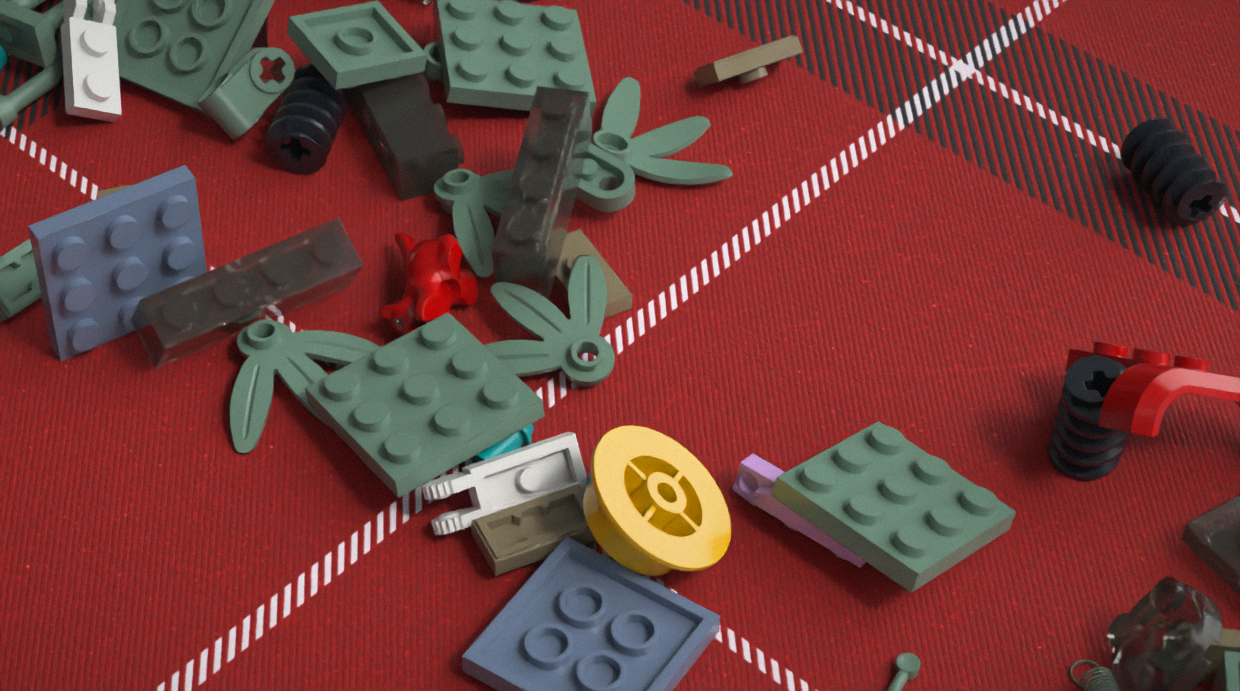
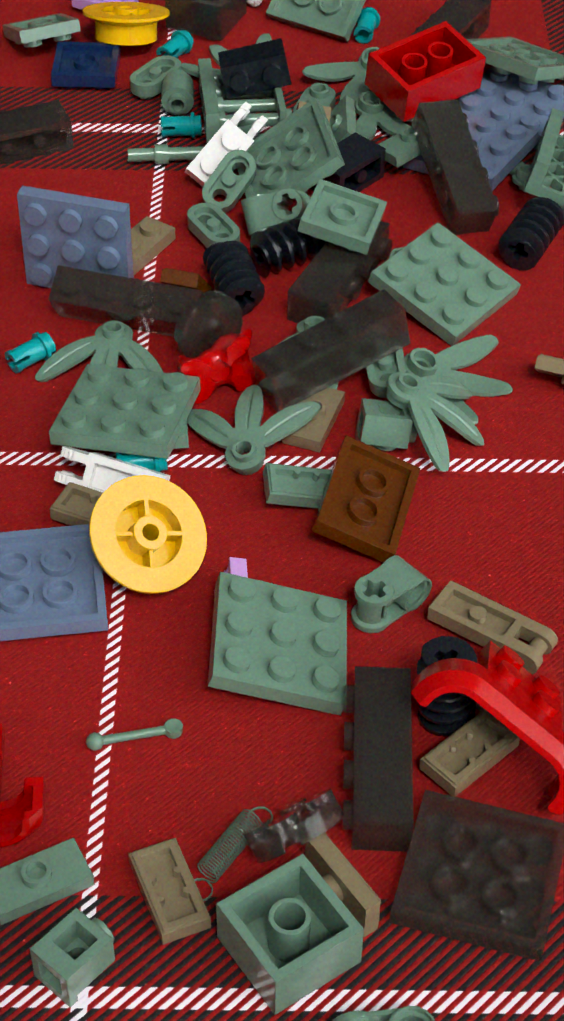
camera: 50 degrees right, 0 degrees up
(143, 95) = (227, 183): none -> sand green plate
(206, 154) = (211, 224): none -> sand green plate
(206, 414) = (30, 352): none -> teal pin
(283, 227) = (184, 279): none -> reddish brown plate
(302, 189) = (234, 273): none -> black piece
(378, 256) = (206, 321): none -> clear smoke plate
(670, 233) = (384, 425): none -> sand green brick
(672, 175) = (425, 402): none -> sand green plant
(688, 346) = (294, 485): none -> sand green plate
(764, 313) = (366, 499): none -> reddish brown plate
(903, 385) = (388, 594): none -> sand green piece
(1012, 343) = (487, 620): none -> dark tan plate
(1107, 521) = (380, 759): none -> clear smoke brick
(1162, 472) = (469, 753): none -> dark tan plate

